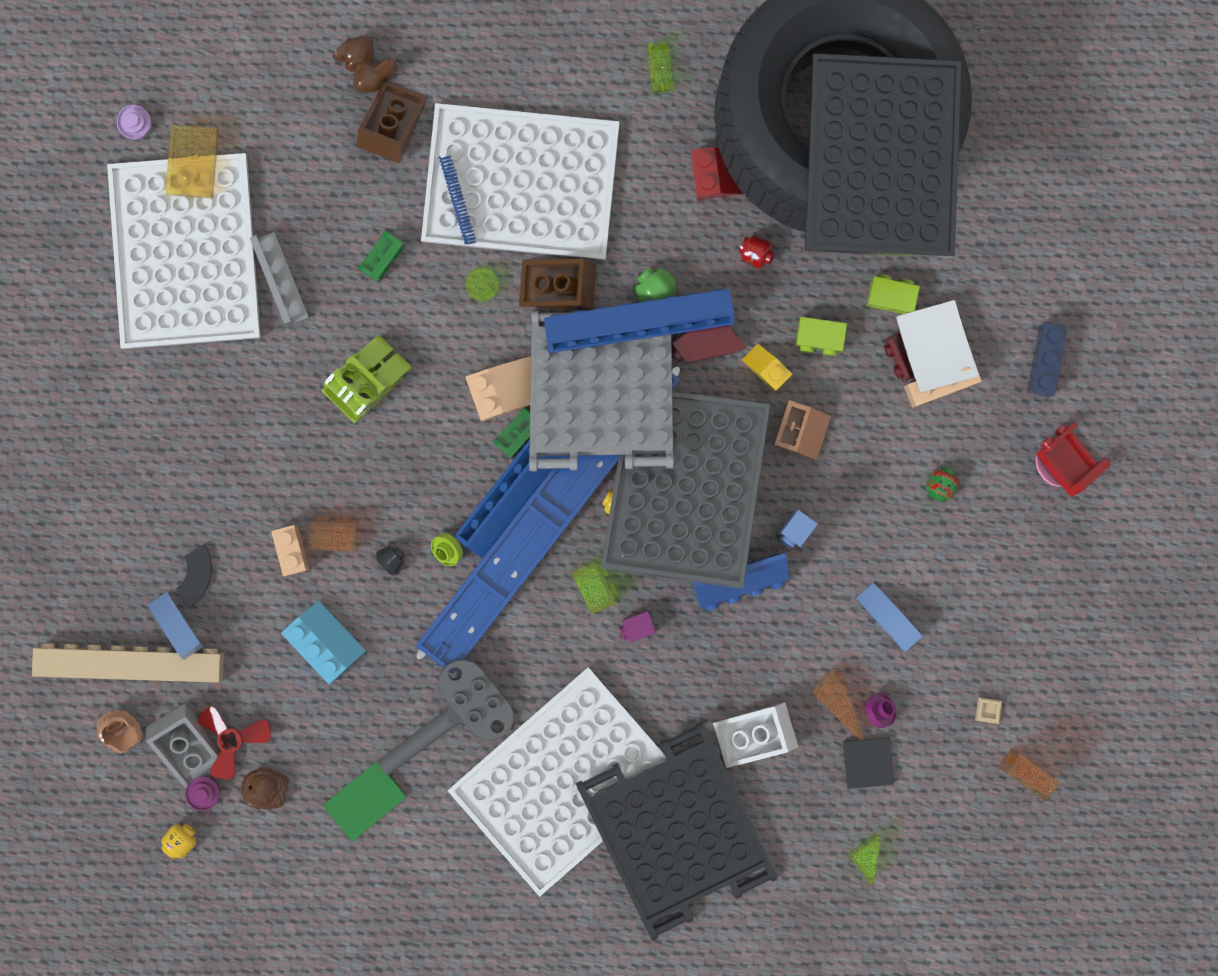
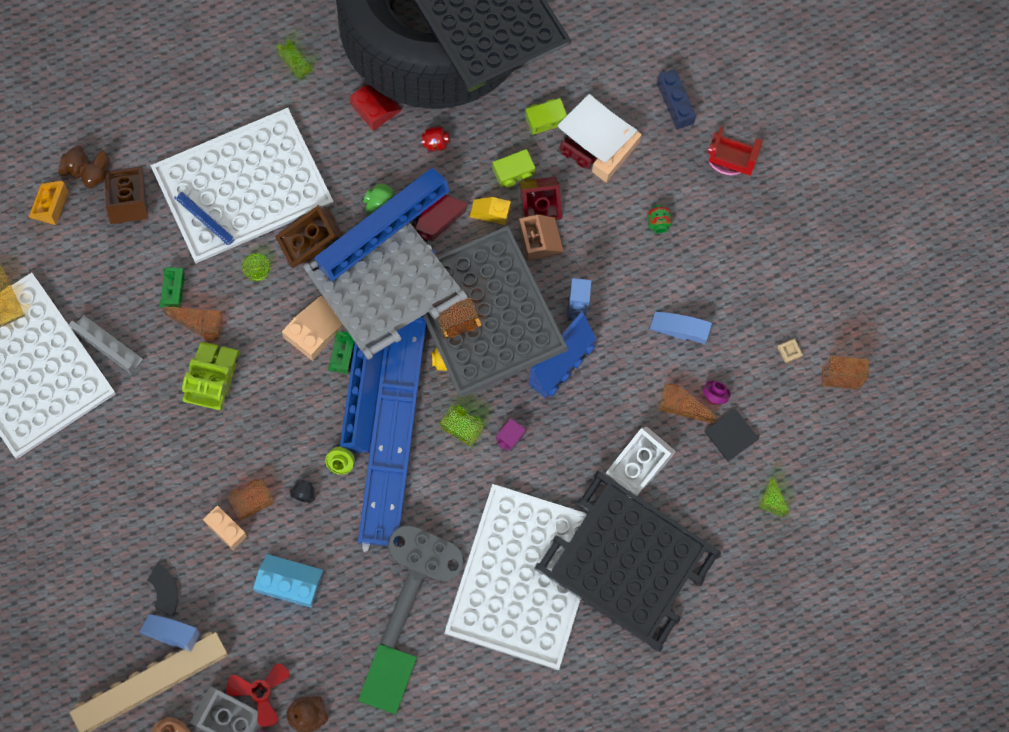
camera: 45 degrees left, 15 degrees down
(306, 82) = (49, 202): none -> light orange slope
(388, 311) = (202, 322): none -> clear orange slope
(652, 483) = (458, 319): none -> clear orange brick
(828, 387) = (541, 197): none -> dark red slope

